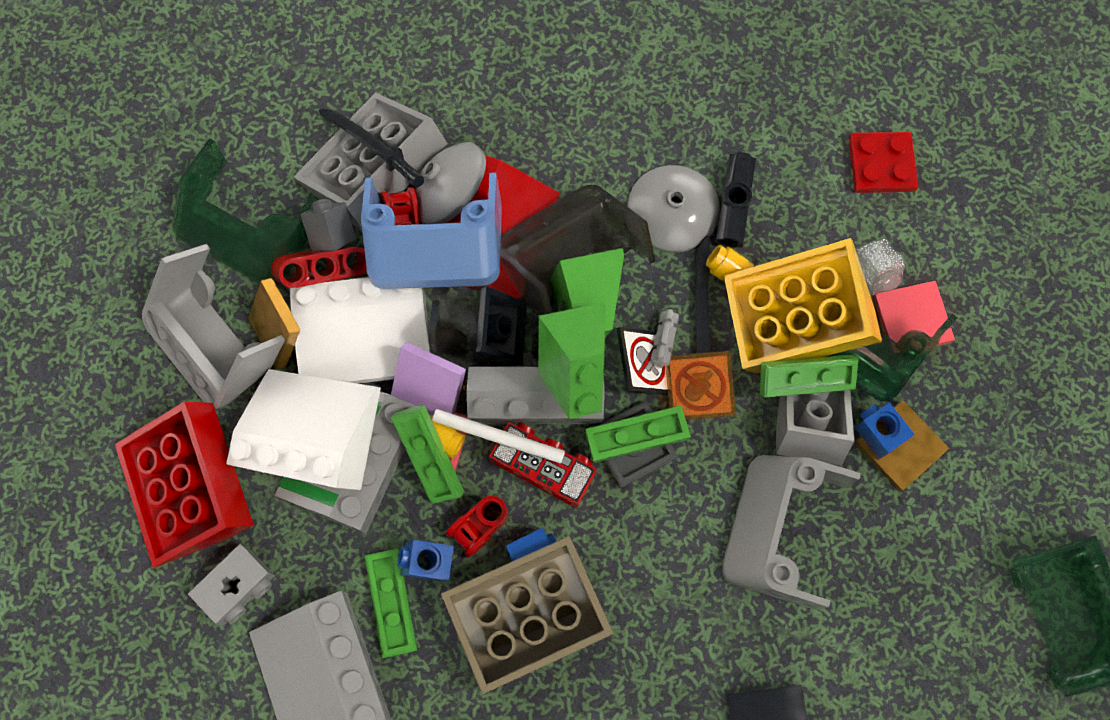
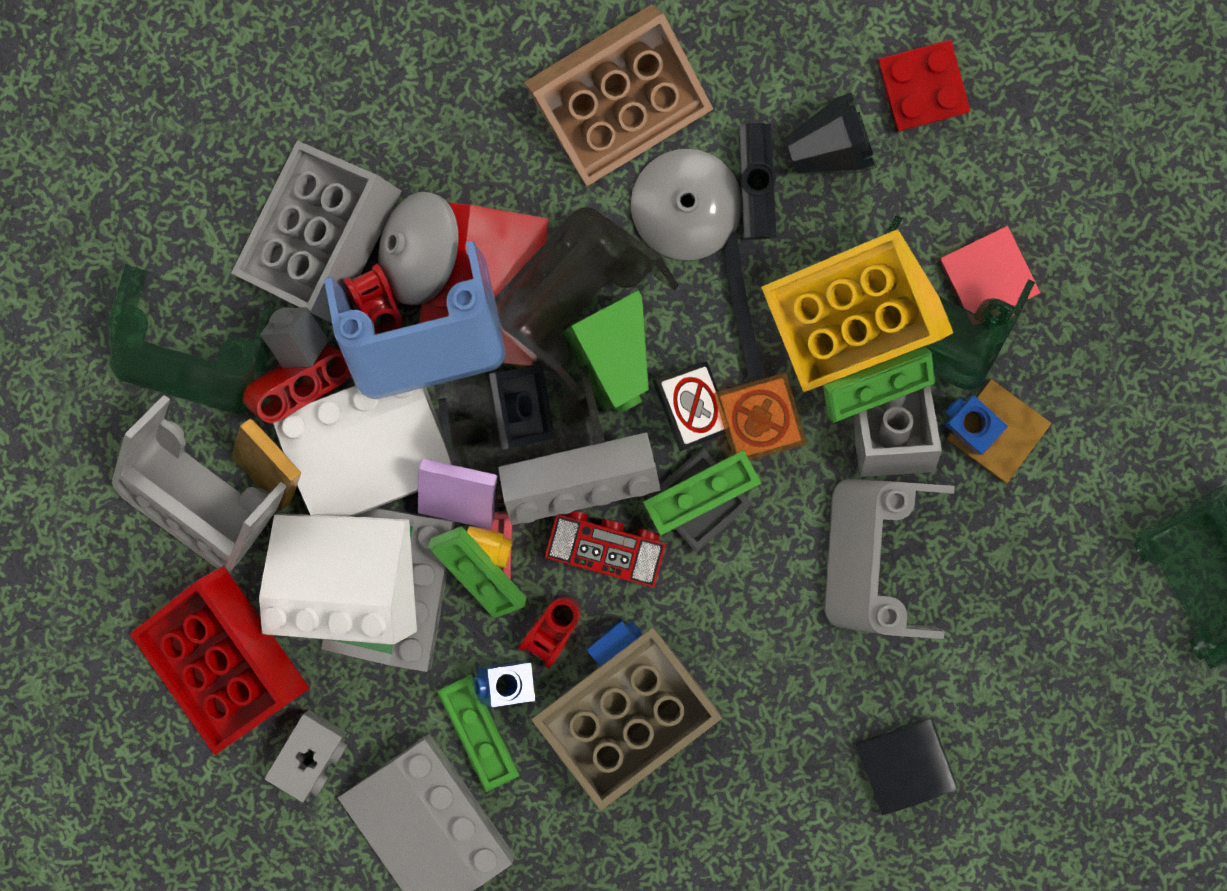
camera: 10 degrees left, 15 degrees up
(393, 159) = (348, 240): black sword -> none
(498, 436) = (550, 535): white bar -> none
(574, 358) = (614, 442): bright green slope -> none
(639, 113) = (619, 94): none -> medium nougat slope
(665, 338) = (709, 371): light grey axle -> none
(726, 261) = (764, 265): yellow brick -> none
(803, 181) = (831, 141): none -> black cone
(881, 266) = (940, 227): clear brick -> none

